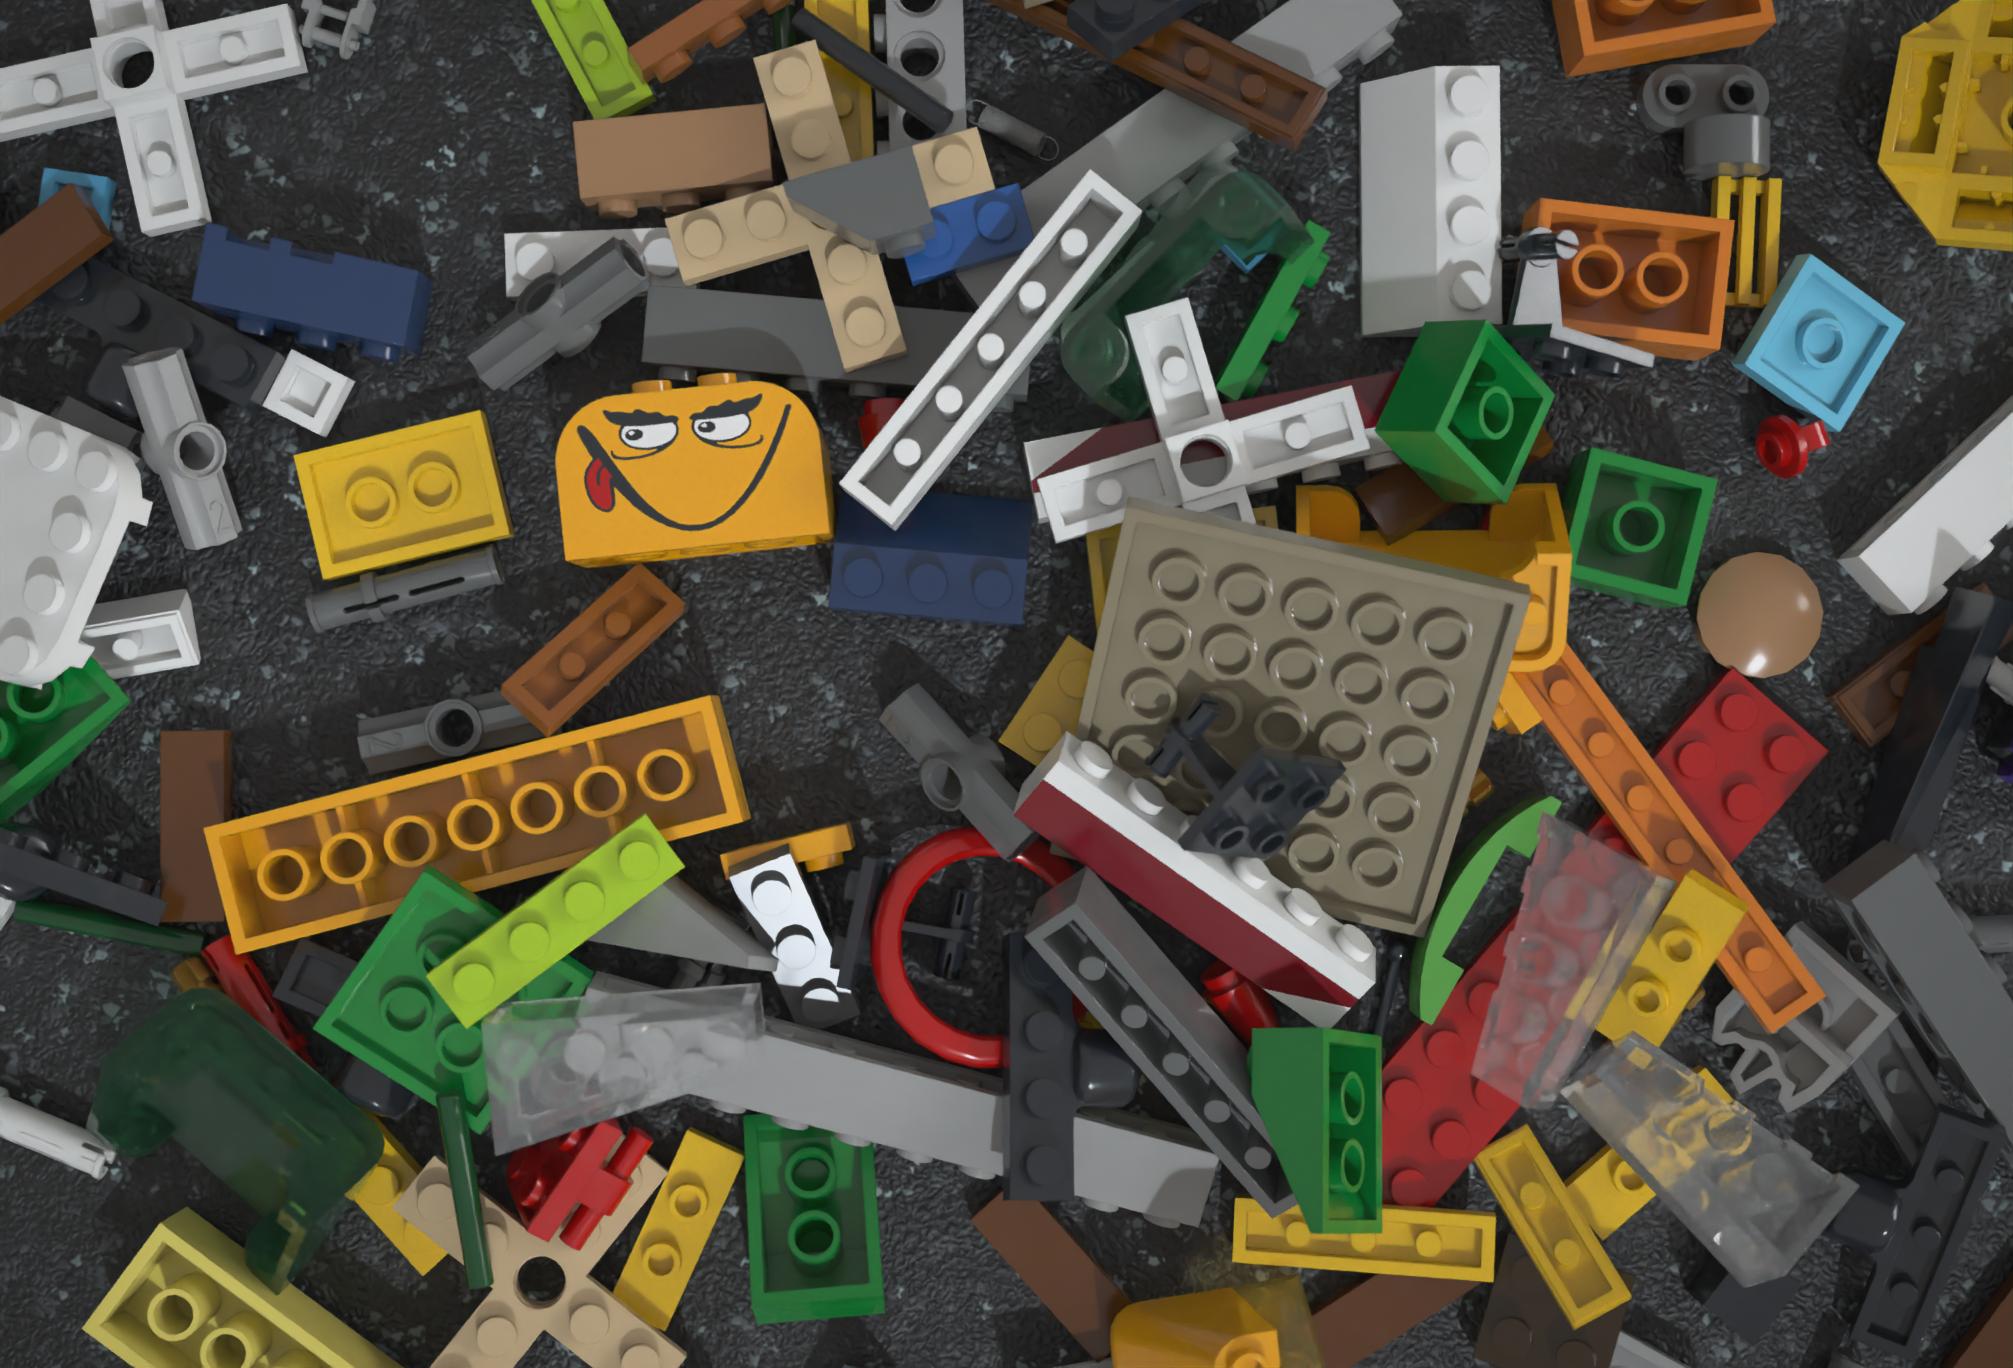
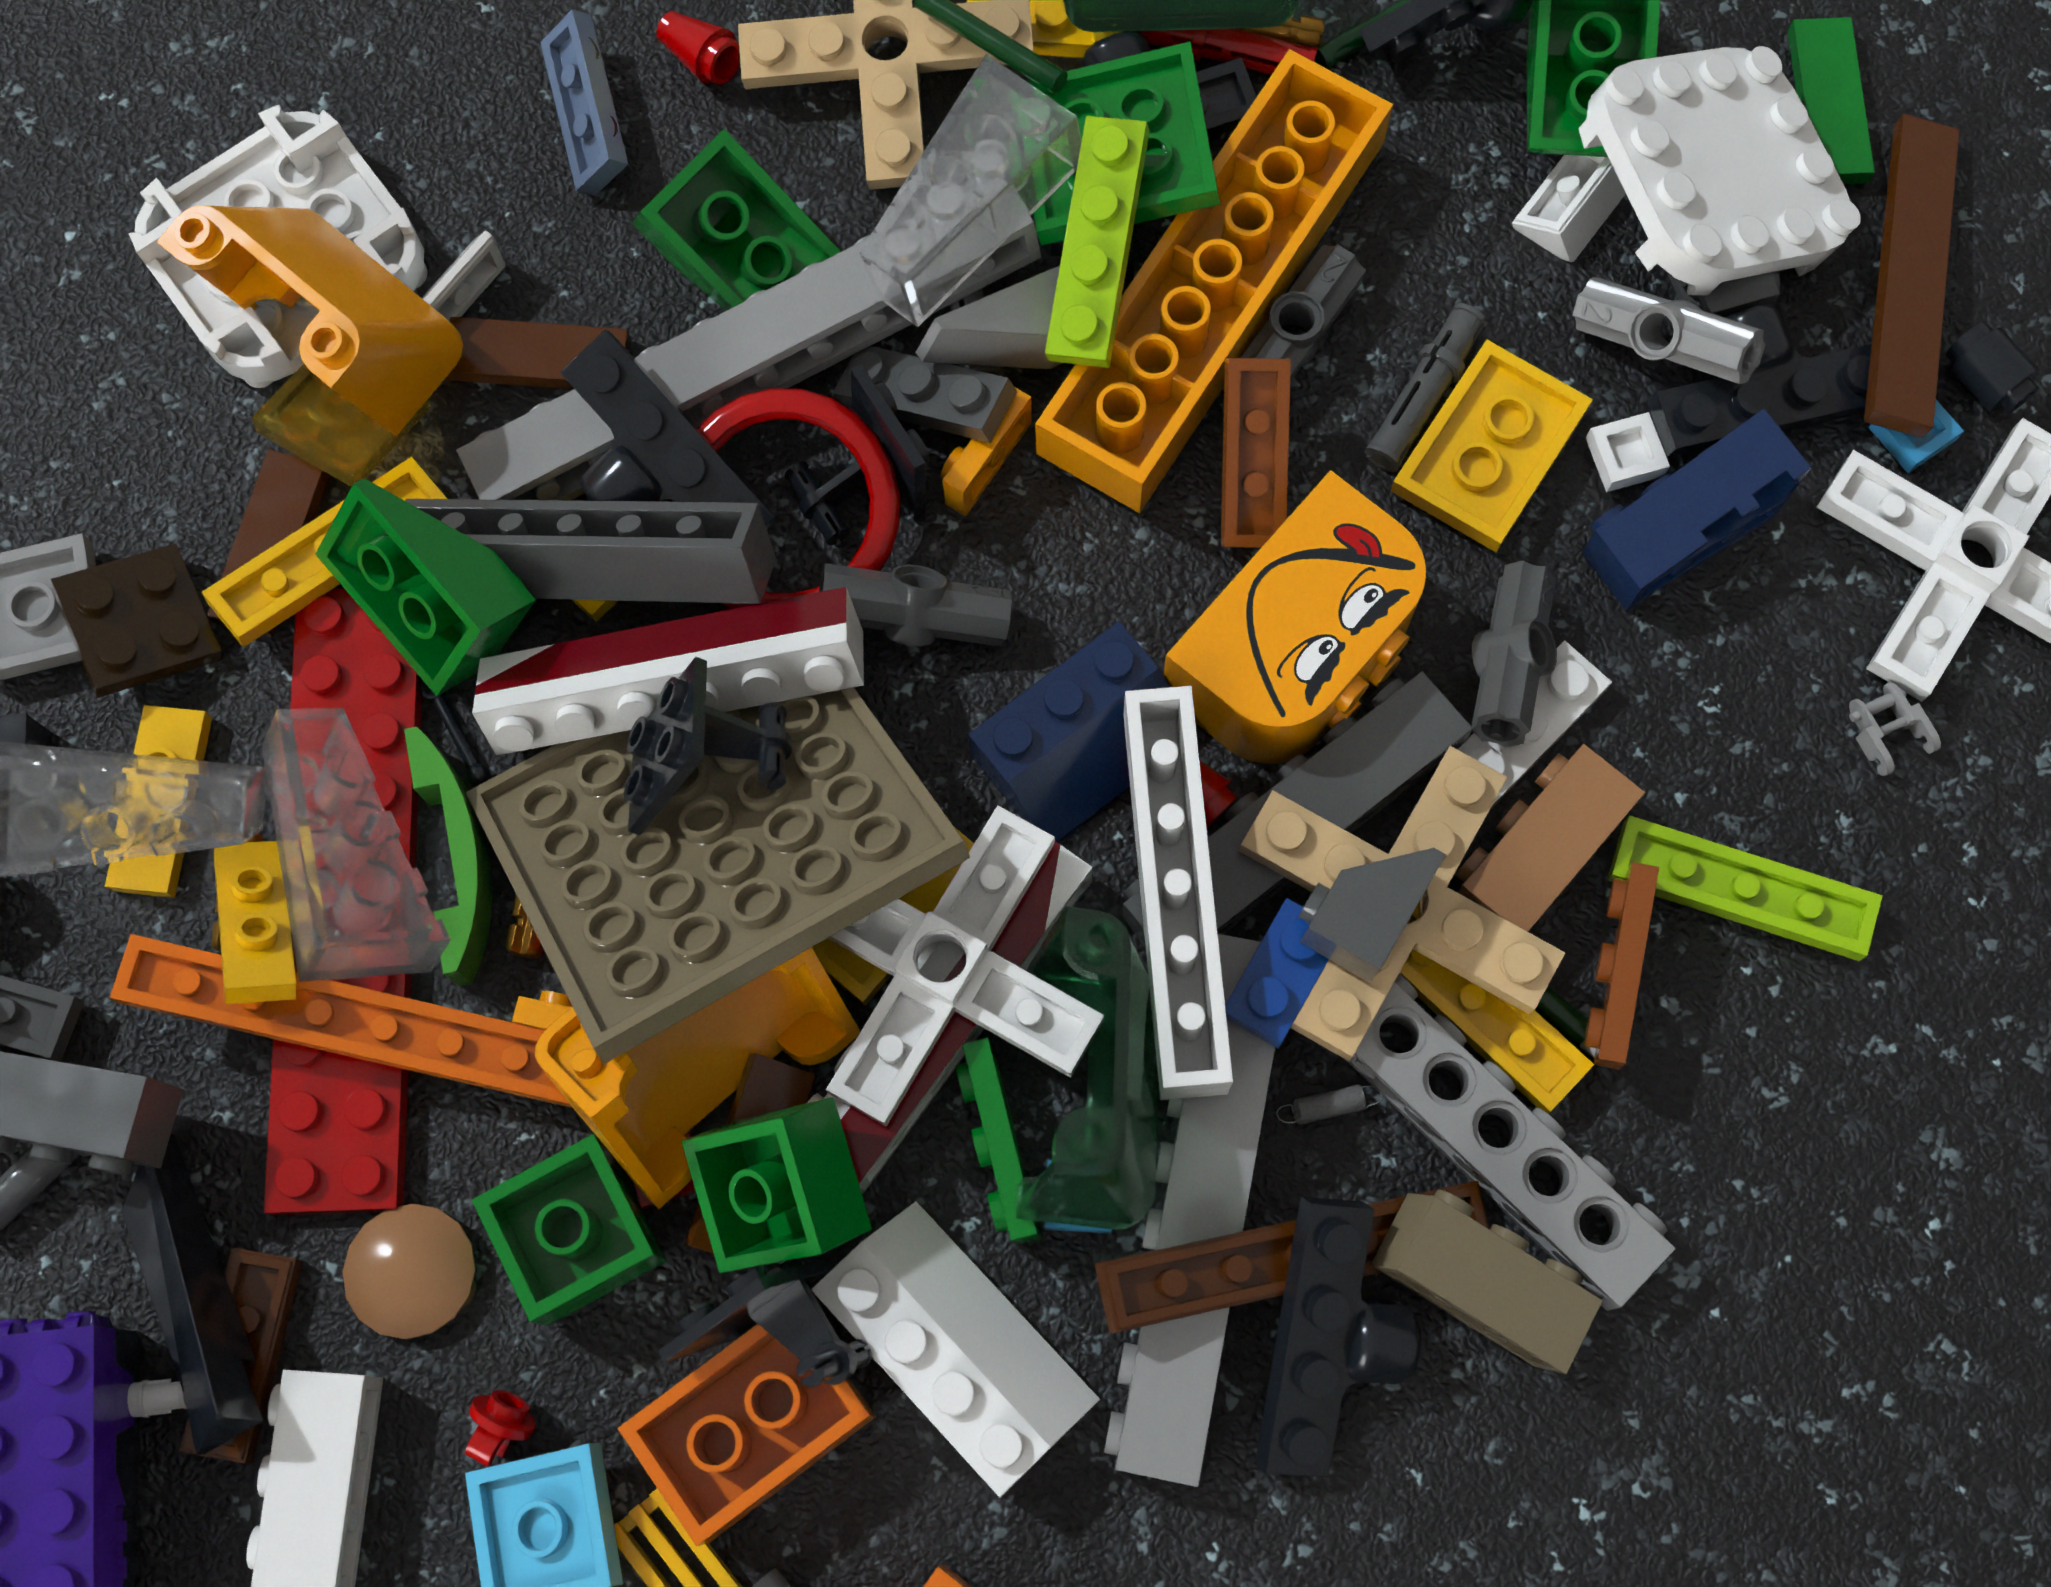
camera: 140 degrees right, 15 degrees down
(192, 797) = (1417, 130): reddish brown tile -> none
(573, 1168) = (916, 115): red plate -> none
(678, 1226) = (827, 160): yellow plate -> none
(872, 71) = (1471, 1031): black bar -> none
(1052, 704) = (893, 700): yellow plate -> none
(1238, 1000) = (555, 627): red cone -> none
(1551, 1227) = (189, 671): yellow tile -> none
(1817, 1043) = (78, 1010): light grey plate -> none

